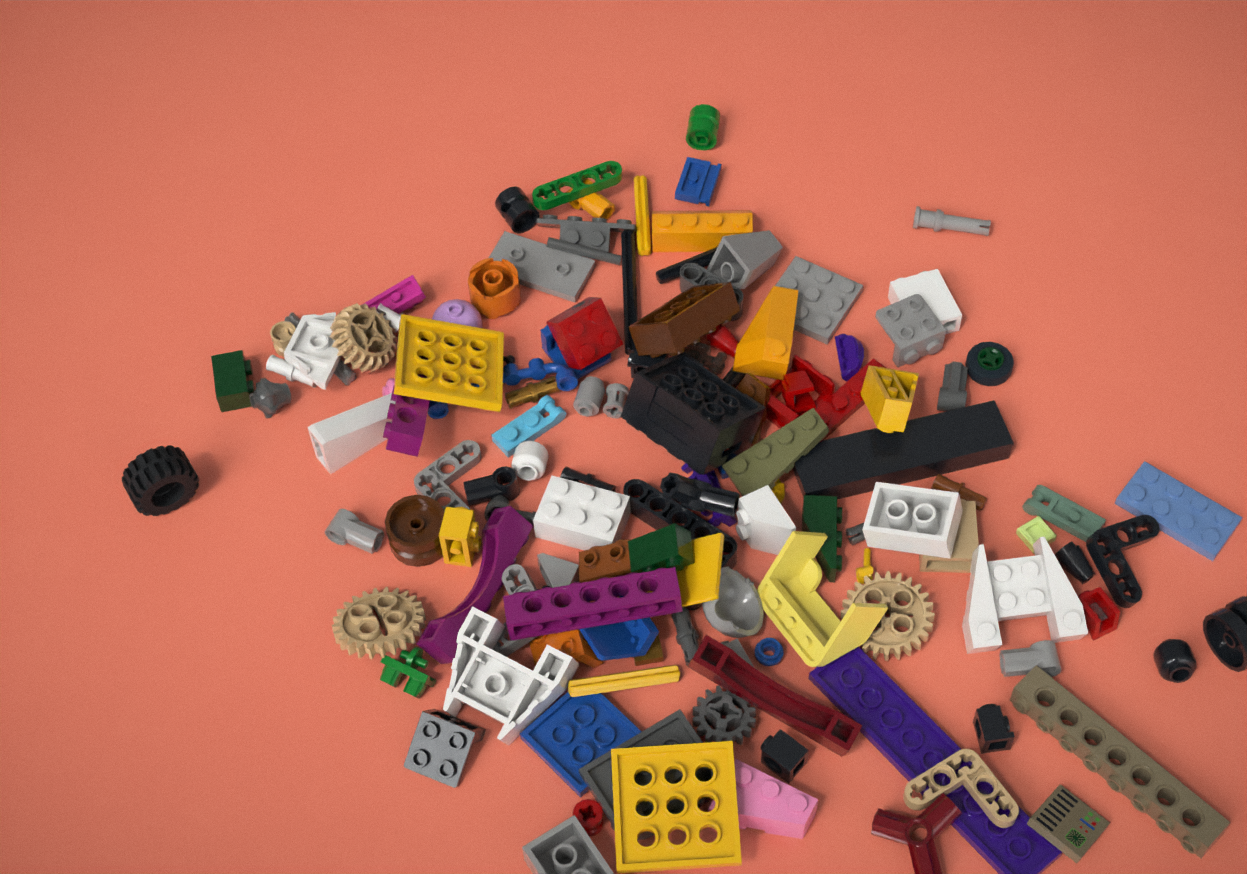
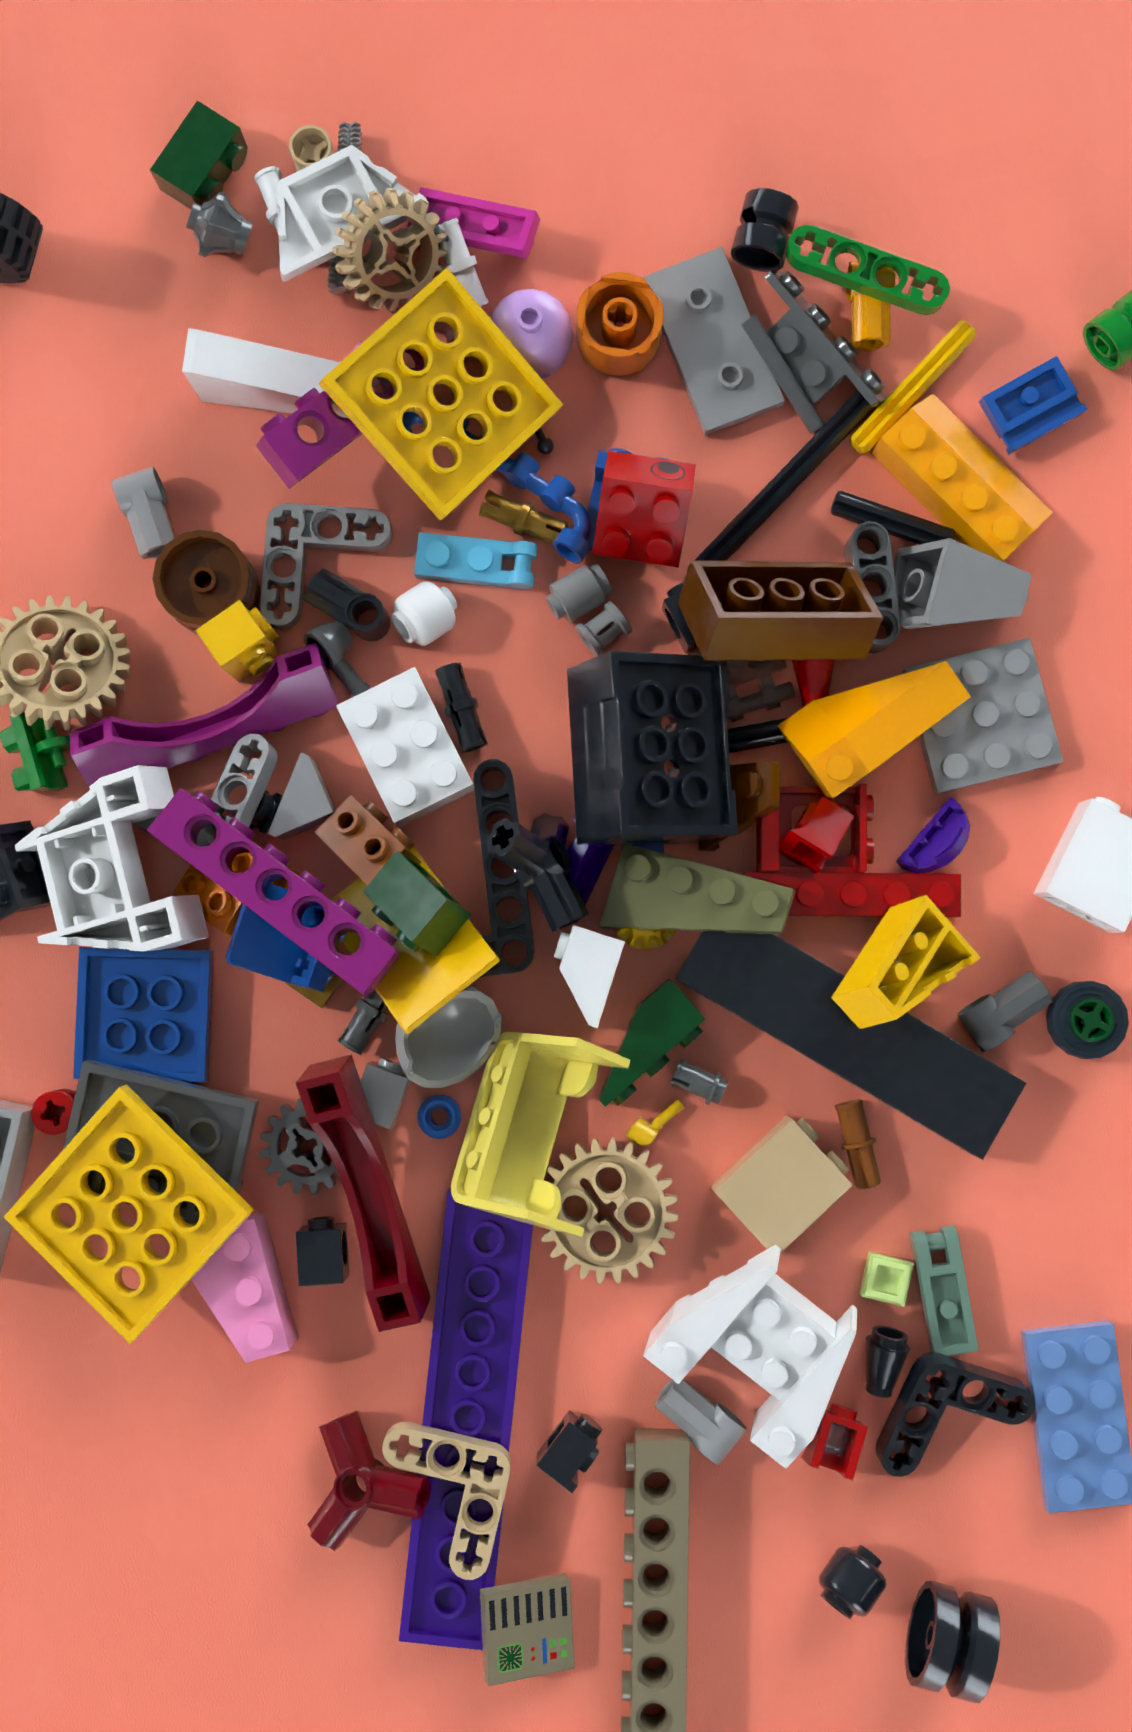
camera: 45 degrees right, 30 degrees up
(623, 680) = (244, 998): yellow axle -> none
(912, 329) = (1045, 884): light grey bracket -> none
(913, 519) = (741, 1149): white brick -> none

